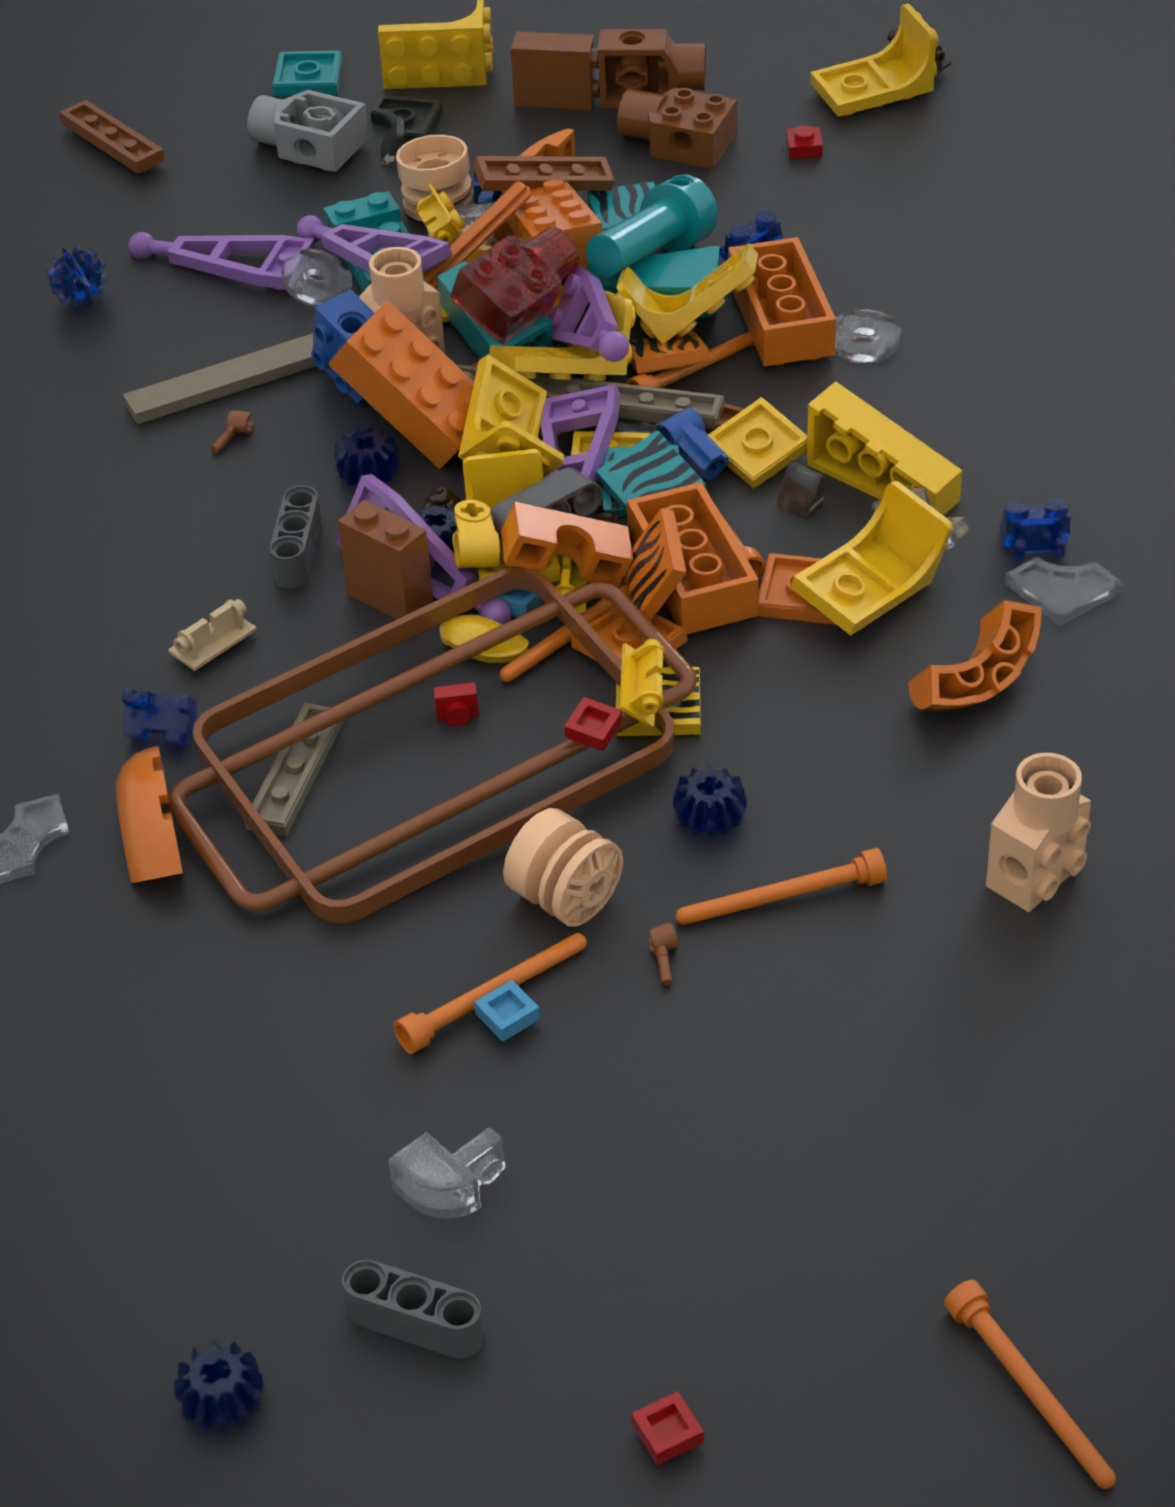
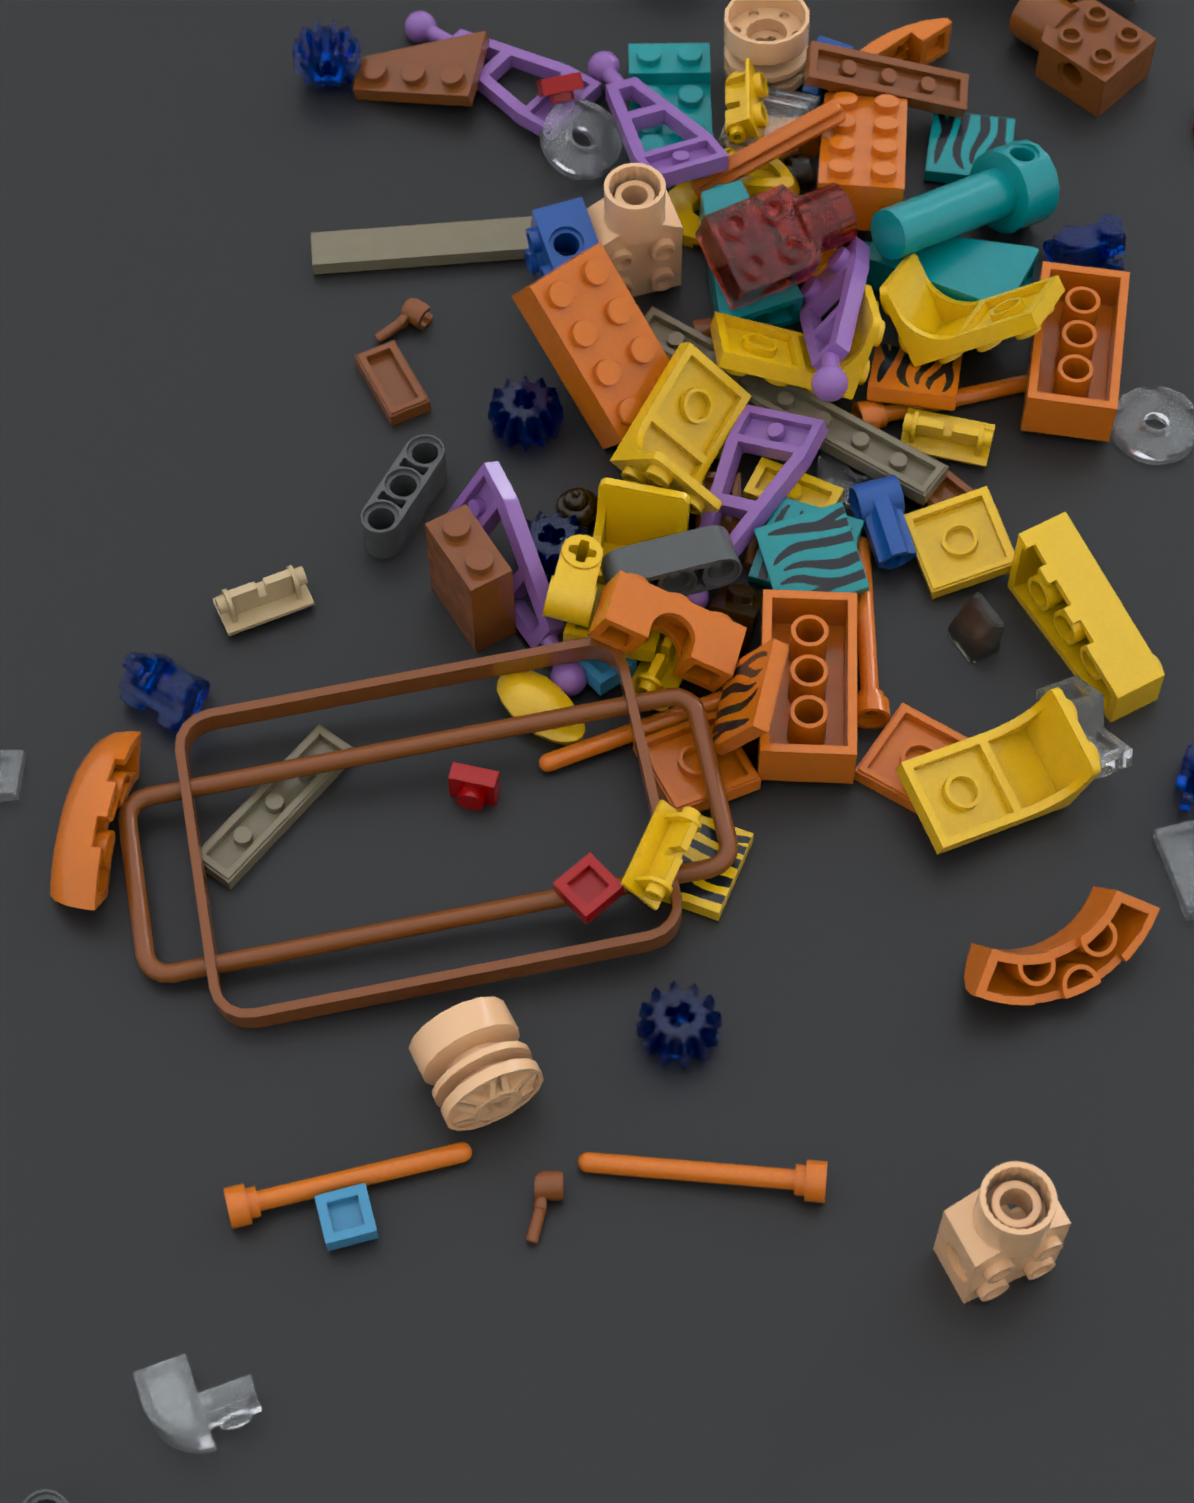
camera: 20 degrees right, 15 degrees up
(163, 270) = (425, 73): none -> dark orange wing
(243, 473) = (392, 383): none -> dark orange tile
(284, 243) = (560, 87): none -> red plate
(723, 380) = (948, 436): none -> yellow hinge

